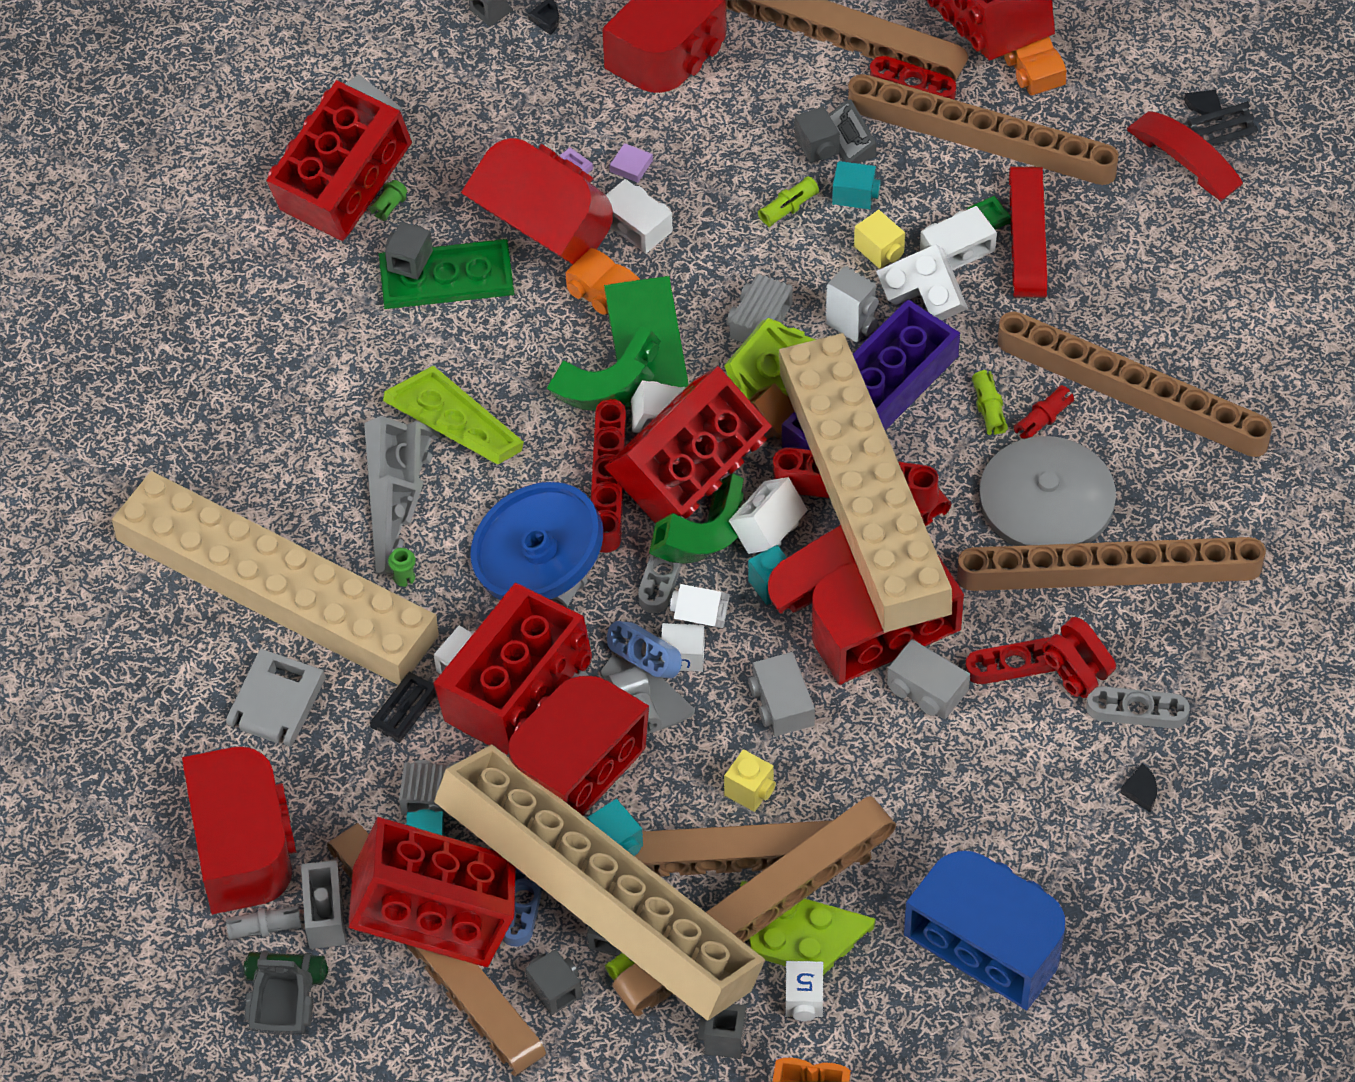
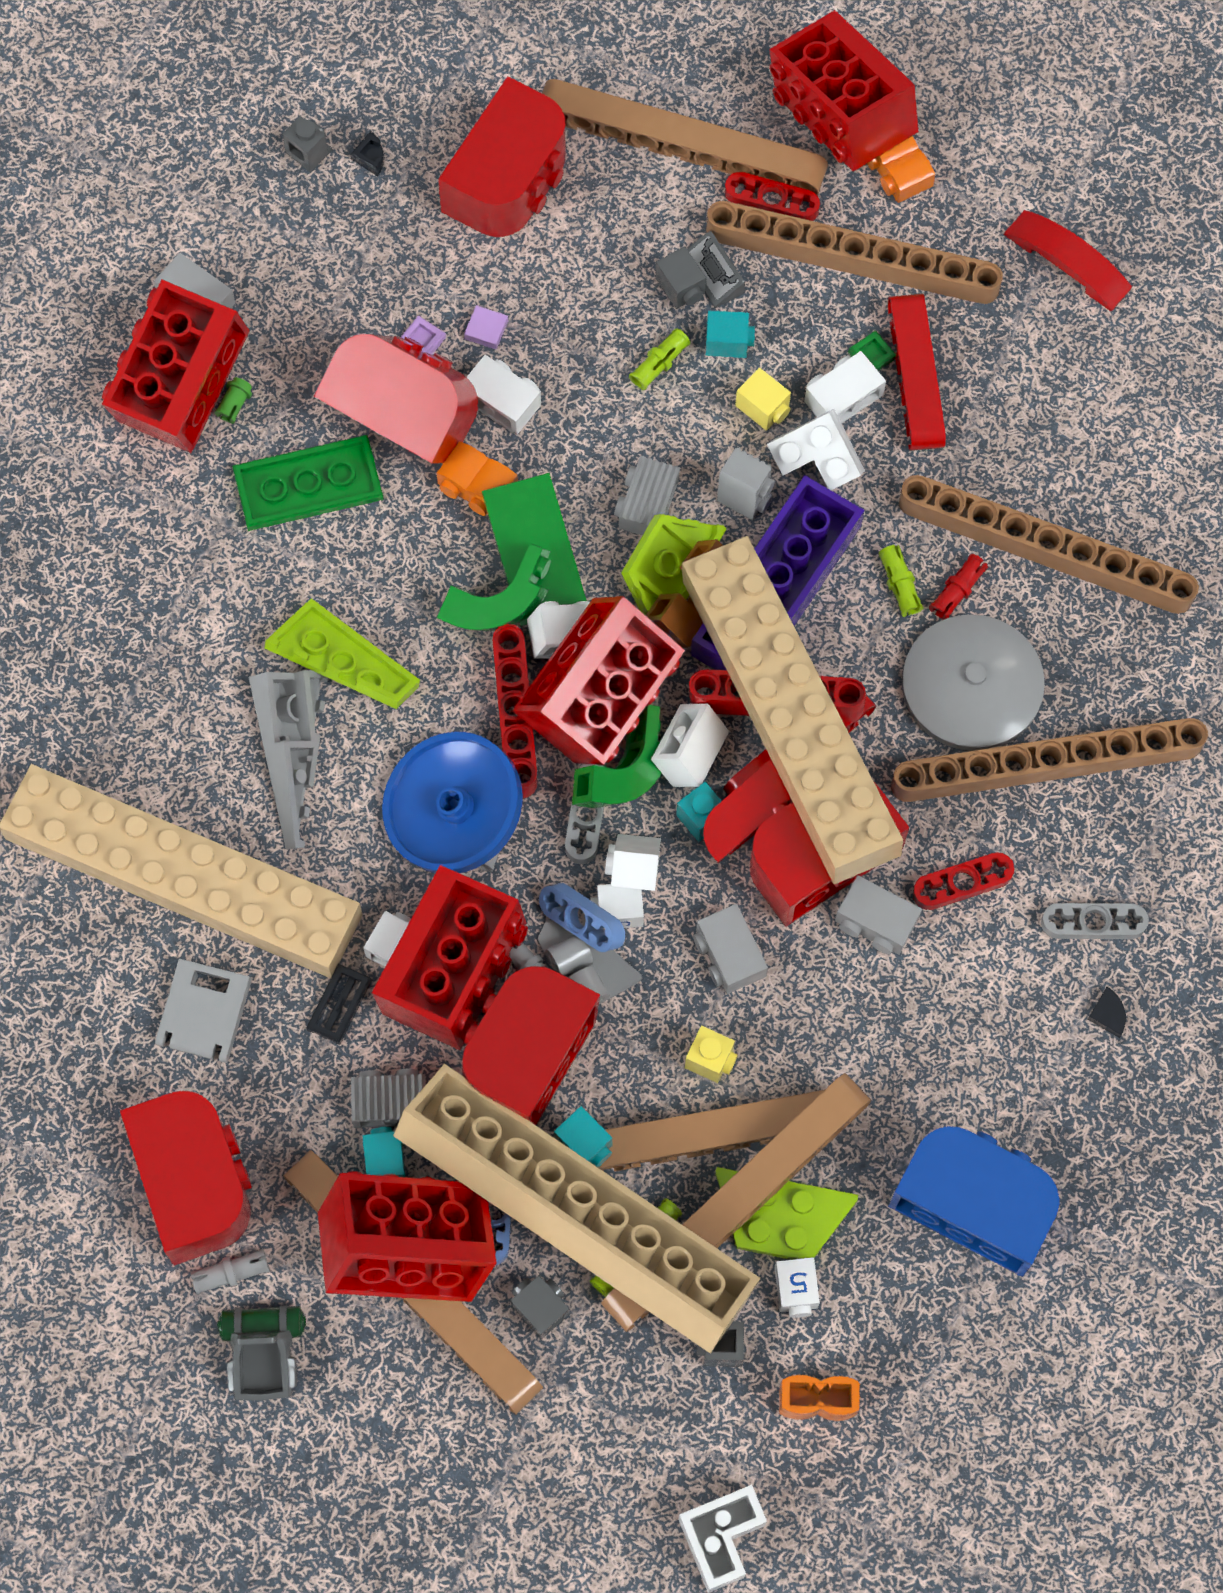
camera: 10 degrees left, 15 degrees up
(323, 904) = (290, 1249): light grey brick -> none
(402, 563) = (314, 835): bright green pin -> none
(408, 250) = (265, 464): dark grey brick -> none
(1078, 657) = (1030, 876): red brick -> none
(1203, 102) = (1082, 196): black tile -> none
(1246, 118) = (1129, 212): black tile -> none

